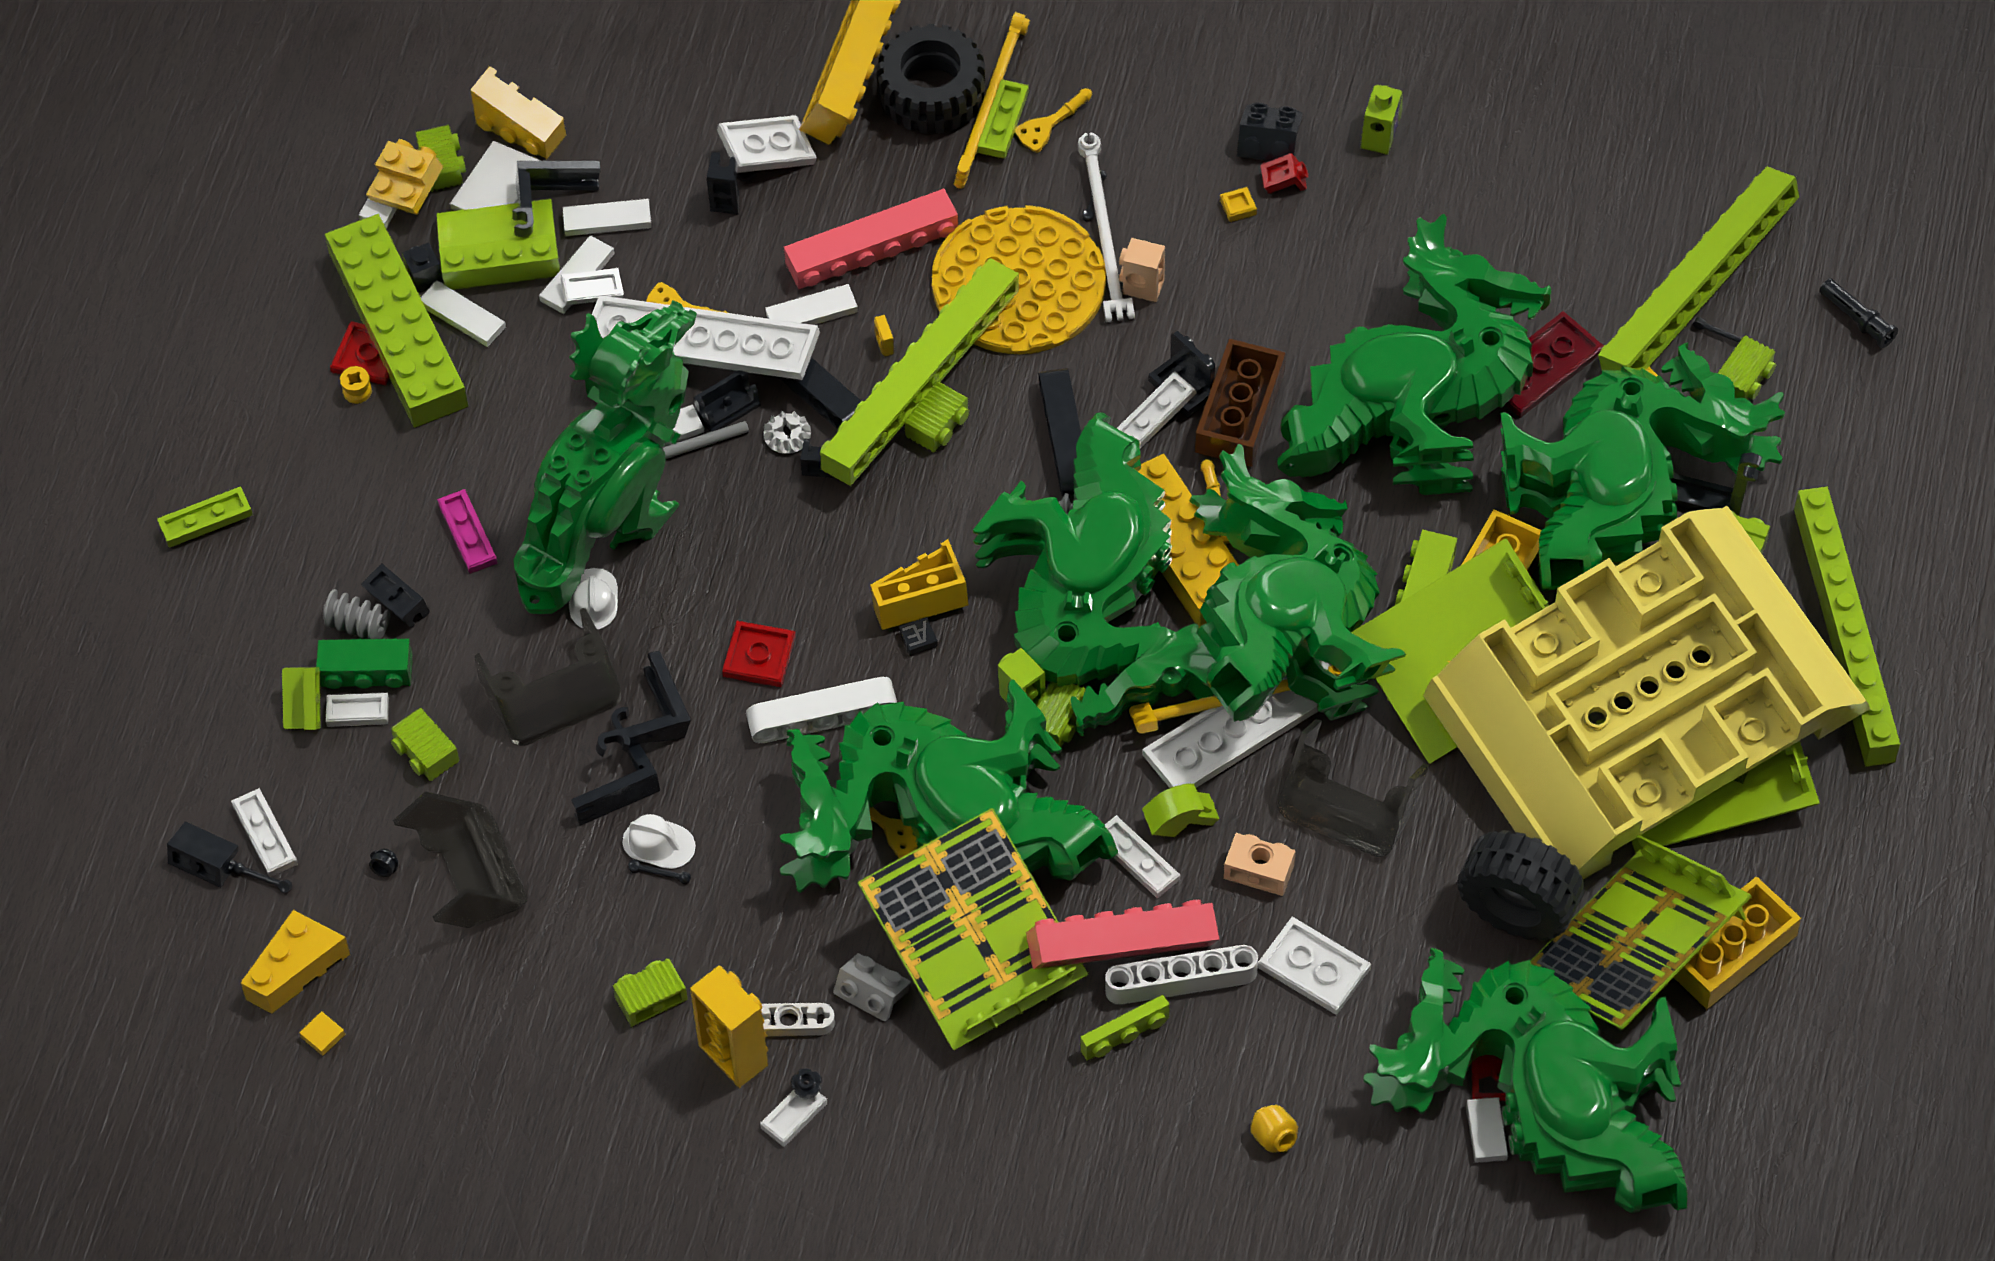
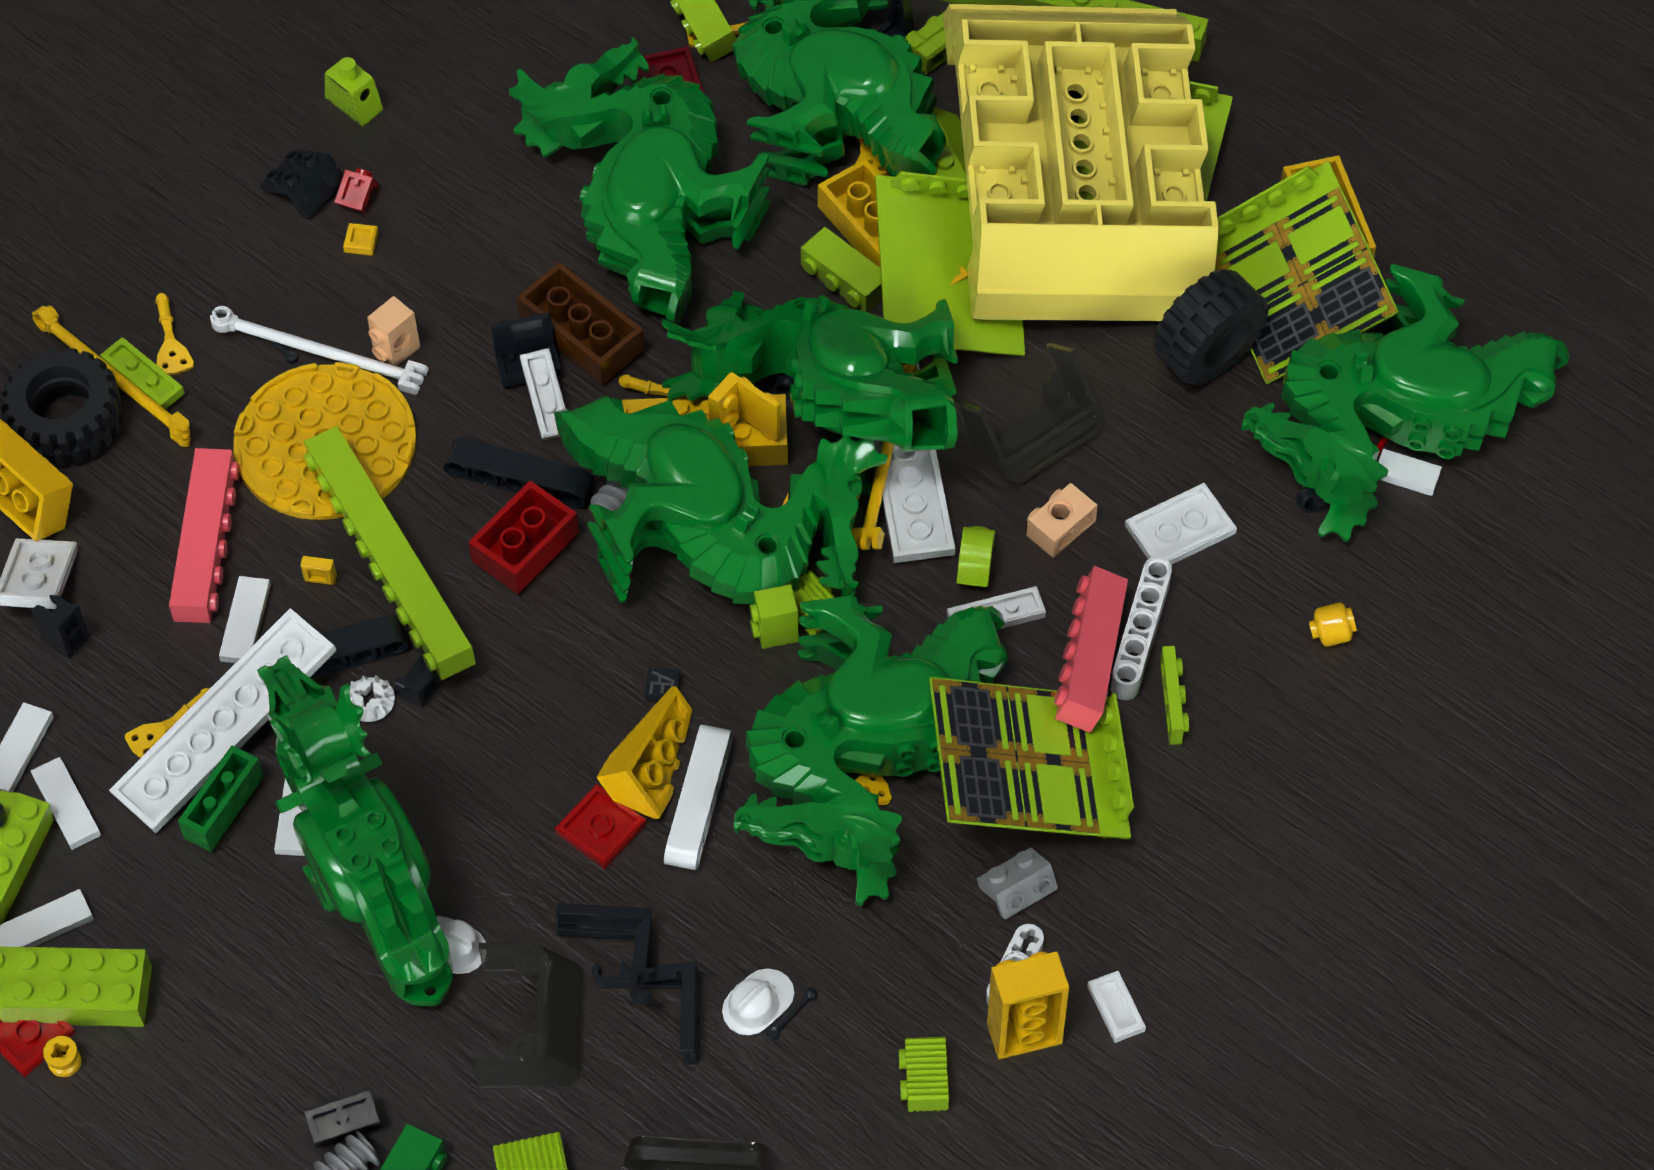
camera: 65 degrees left, 0 degrees up
(467, 531) = (300, 1026): dark pink tile -> none
(587, 286) = (92, 793): white tile -> none
(806, 1091) = (1099, 985): black plate -> none
(834, 655) = (644, 762): none -> yellow wedge
(920, 590) = (622, 653): yellow wedge -> none
(936, 417) = (440, 563): lime brick -> none
(995, 460) = (524, 537): none -> red brick
(1197, 541) = (740, 398): none -> yellow bracket

